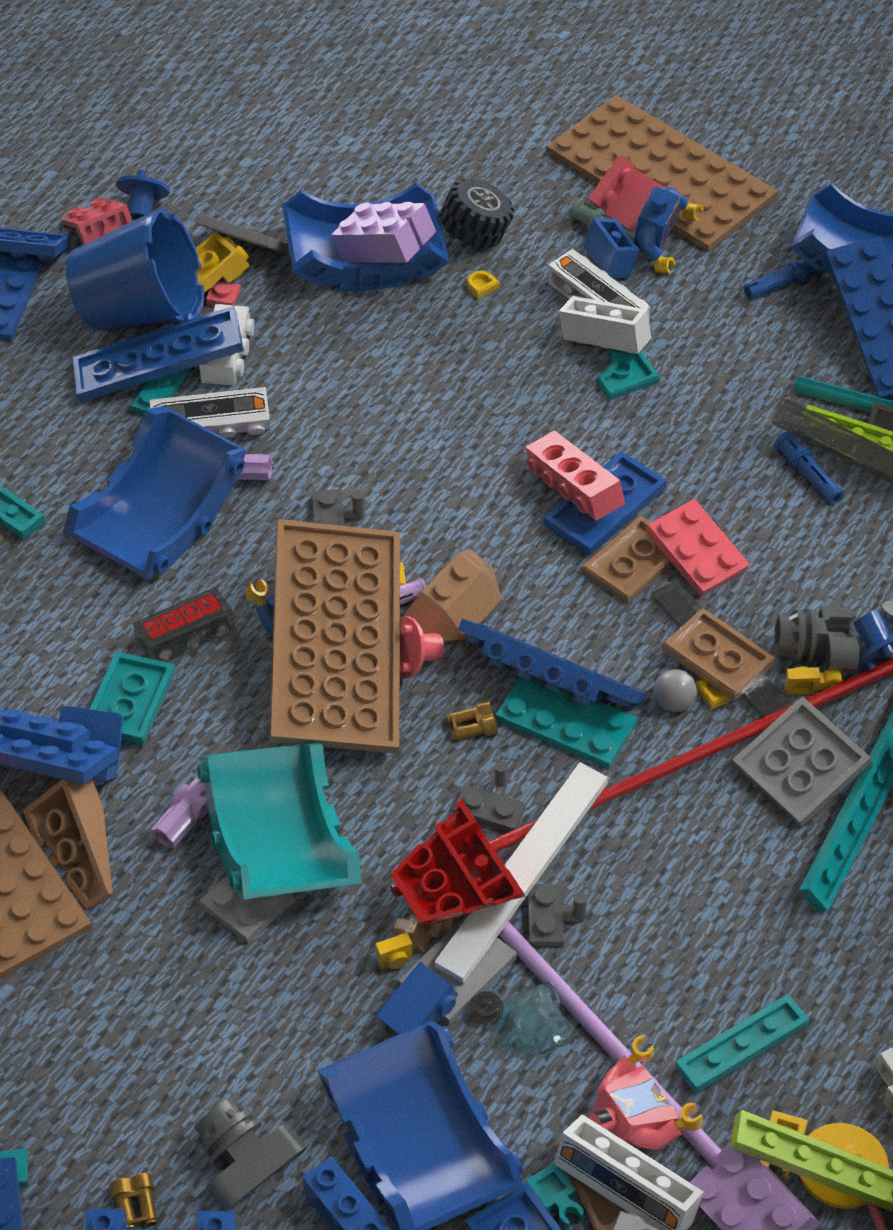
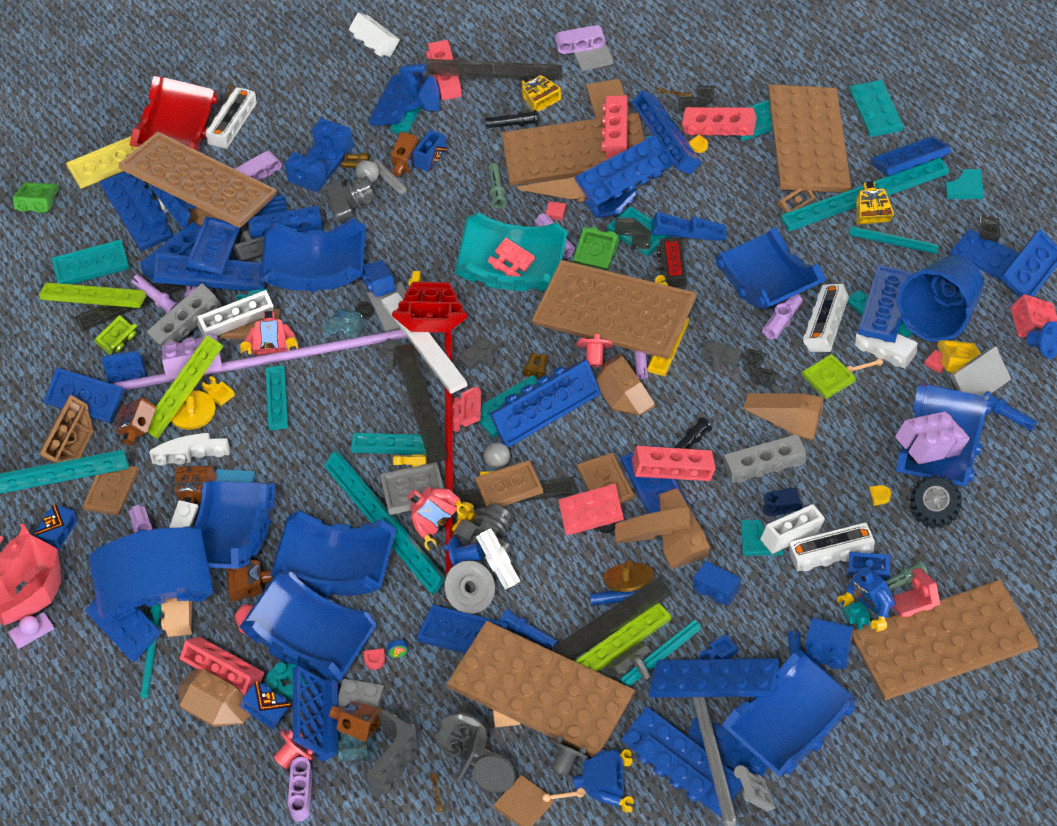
camera: 120 degrees right, 0 degrees up
(12, 402) = (894, 240): none -> teal axle
(73, 1070) = (429, 150): none -> blue brick
(102, 634) = (695, 228): none -> blue slope
(102, 1104) = (402, 154): none -> dark orange torso
(122, 931) = (497, 192): none -> sand green pin
(128, 832) = (556, 210): none -> coral tile
(147, 679) = (630, 226): none -> clear smoke tile
(154, 1125) = (390, 178): none -> light grey axle
(166, 1154) = (367, 168): none -> light grey piece
(194, 730) = (596, 248): none -> bright green plate
(254, 352) = (879, 361): none -> light nougat hinge
(273, 213) = (1000, 407): none -> blue pin
(273, 824) = (514, 255): none -> coral plate
(311, 387) = (828, 376): none -> lime plate
(346, 463) = (759, 376): none -> clear smoke tile
(401, 407) = (790, 411): none -> medium nougat wedge
(497, 400) = (765, 458): none -> light grey brick
(500, 489) = (694, 434): none -> black pin
(557, 363) = (783, 500): none -> dark blue piece
(615, 750) = (467, 409): none -> coral plate
(641, 821) = (421, 403): none -> clear smoke tile
(678, 432) = (686, 544): none -> medium nougat wedge
(683, 245) = (857, 614): none -> teal plate
(691, 455) = (652, 525): none -> medium nougat slope
(728, 380) = (716, 583): none -> blue brick
(734, 839) = (387, 443): none -> teal plate
(744, 791) = (412, 459): none -> yellow plate
(752, 241) = (829, 643): none -> blue brick
(780, 466) = (628, 576): none -> pearl gold shield
(819, 346) = (720, 649): none -> blue plate
(833, 697) = (432, 510): none -> torso
(859, 597) = (498, 558): none -> white piece

